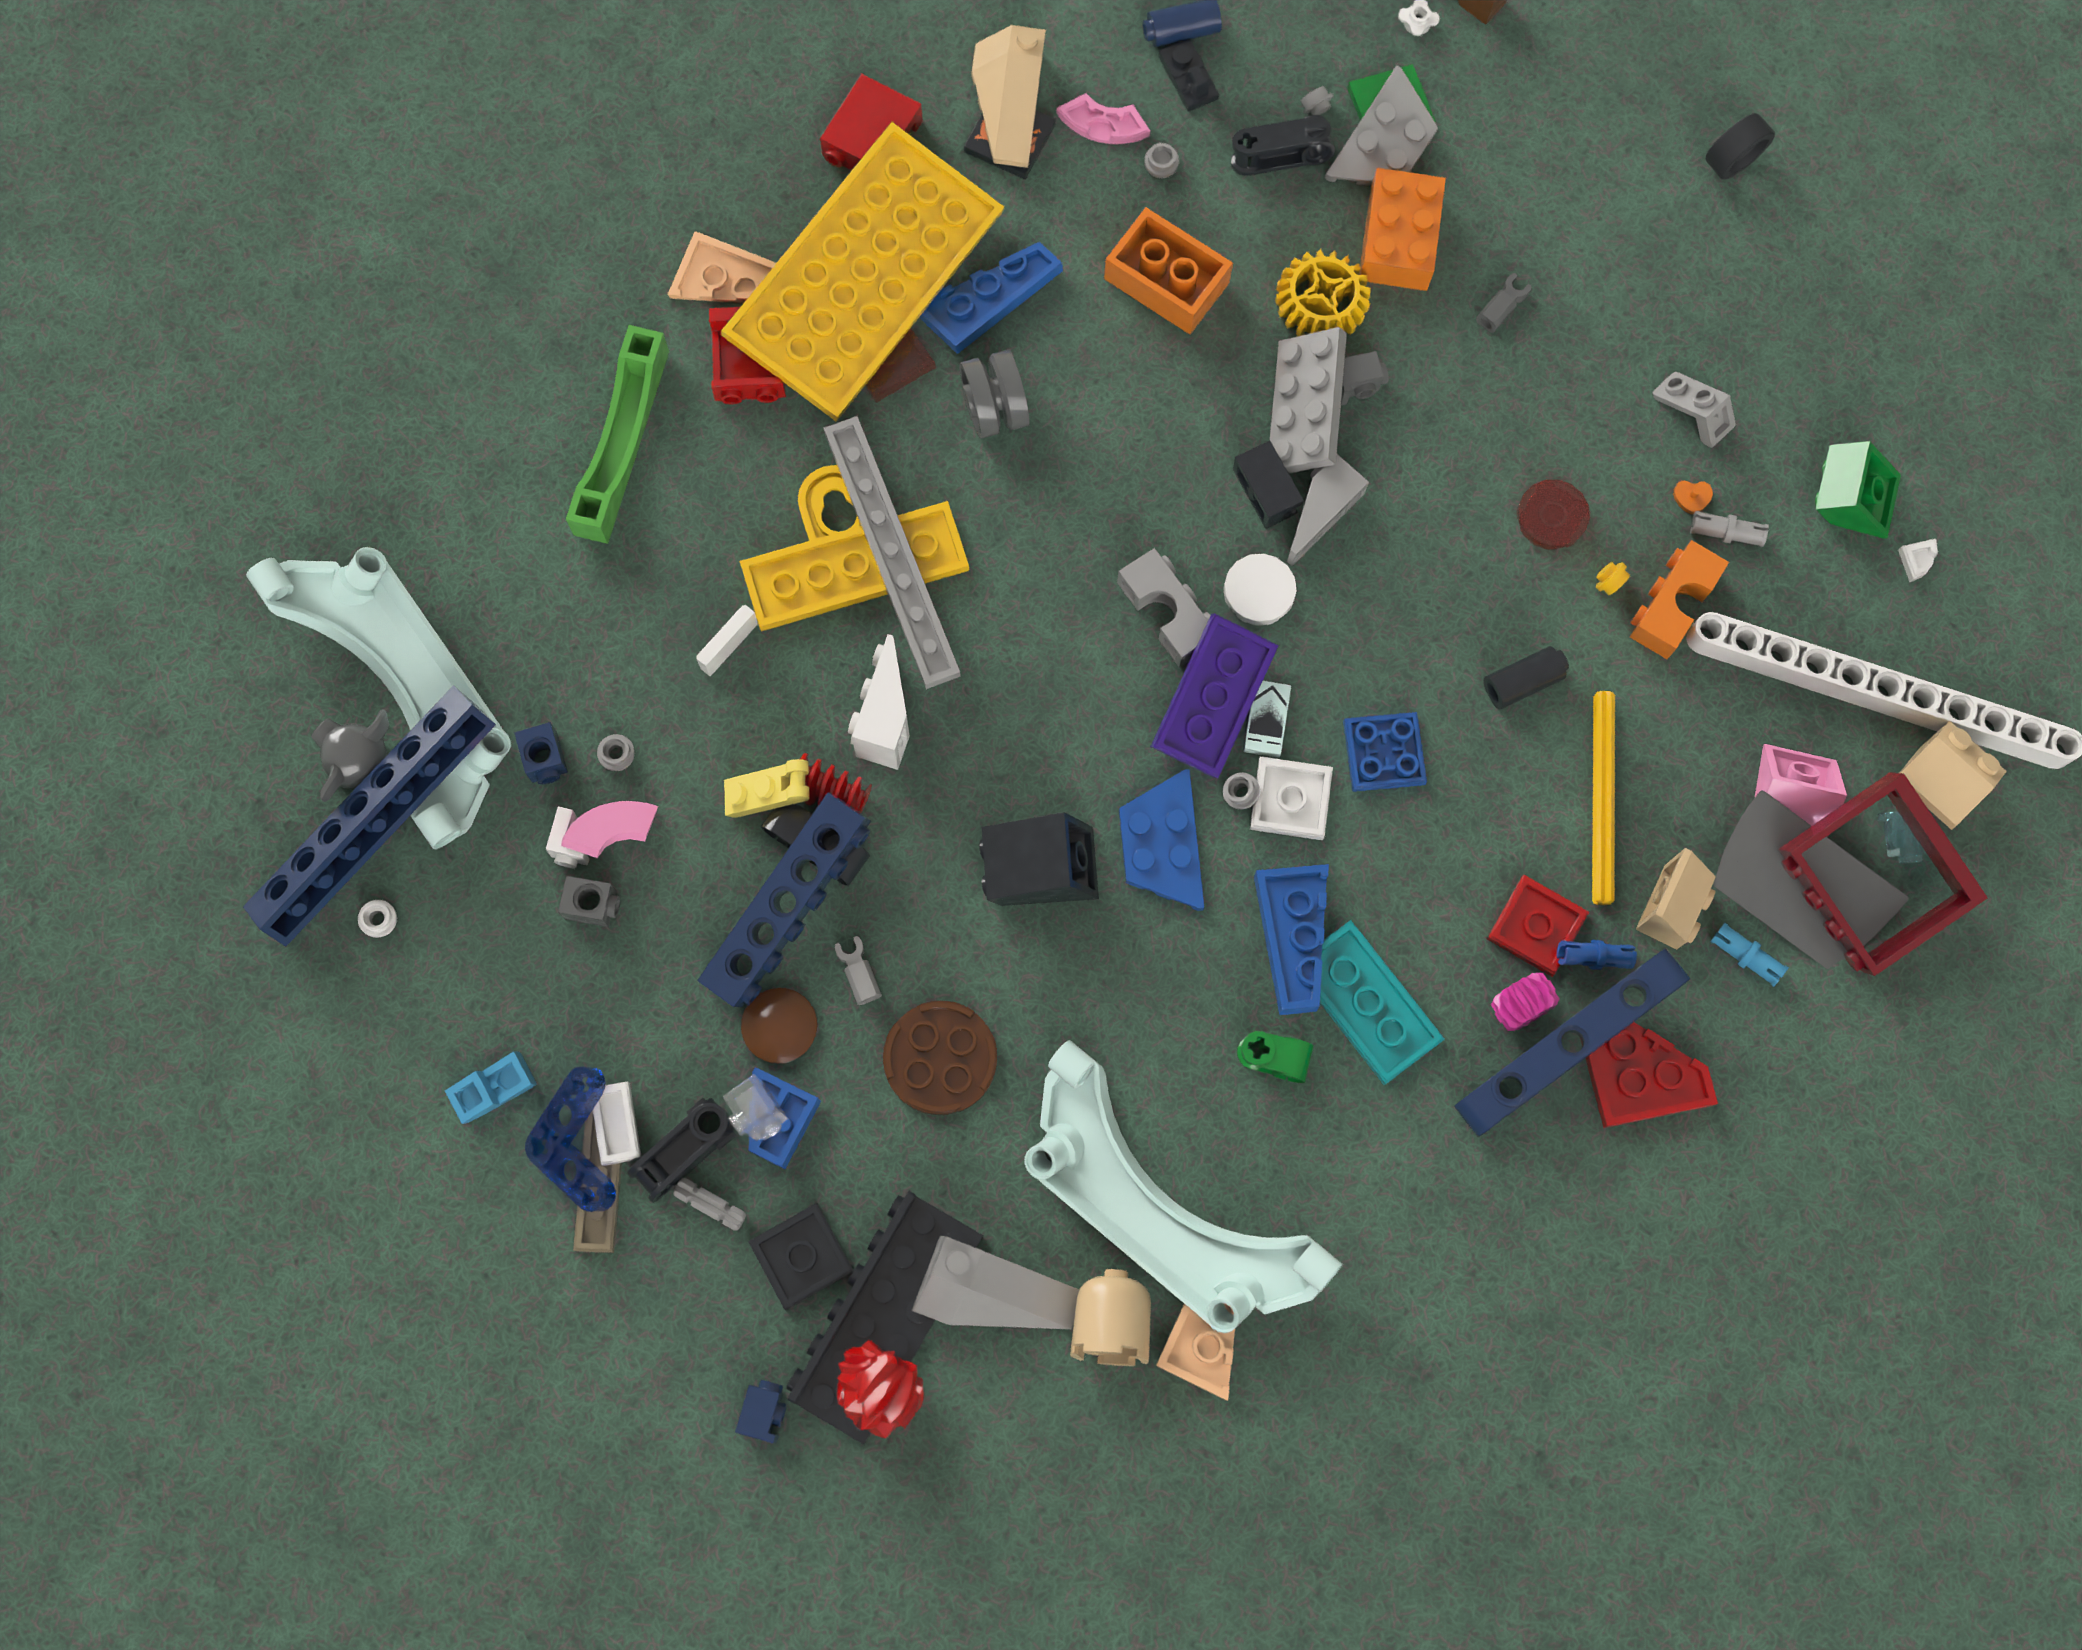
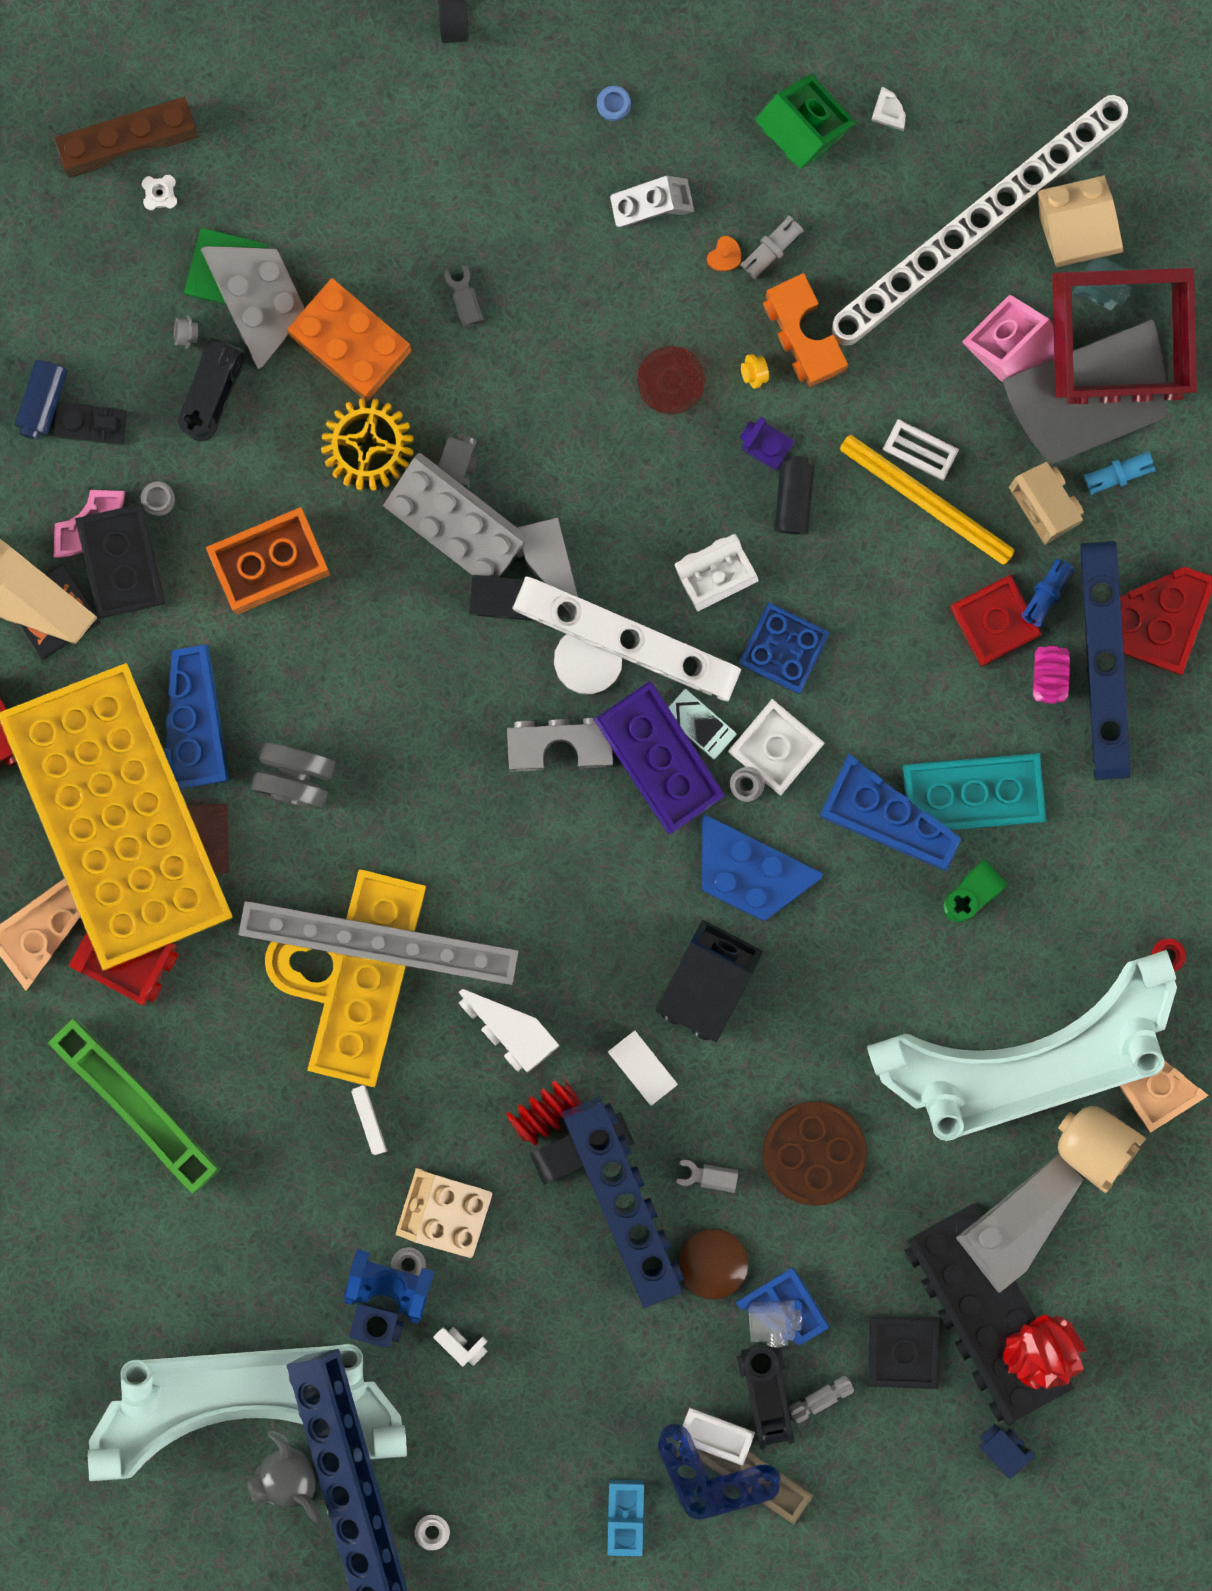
camera: 55 degrees left, 10 degrees up
(574, 895) = (512, 1367): dark grey brick -> none
(578, 722) = (373, 1280): none -> blue piece
(609, 824) = (470, 1304): bright pink tile -> none
(681, 757) = (444, 1213): none -> tan bracket
(766, 789) = (519, 1163): light yellow plate -> none
(923, 853) = (642, 1068): none -> white tile
(1088, 159) = (120, 561): none -> black tile
(1299, 574) = (604, 631): none -> white beam
(1347, 1285) = (1176, 947): none -> red plate
(1413, 647) = (715, 572): none -> white bracket
(1555, 624) = (765, 443): none -> dark purple bracket
(1629, 765) = (946, 463): none -> white tile
(1754, 328) = (613, 103): none -> medium blue tile

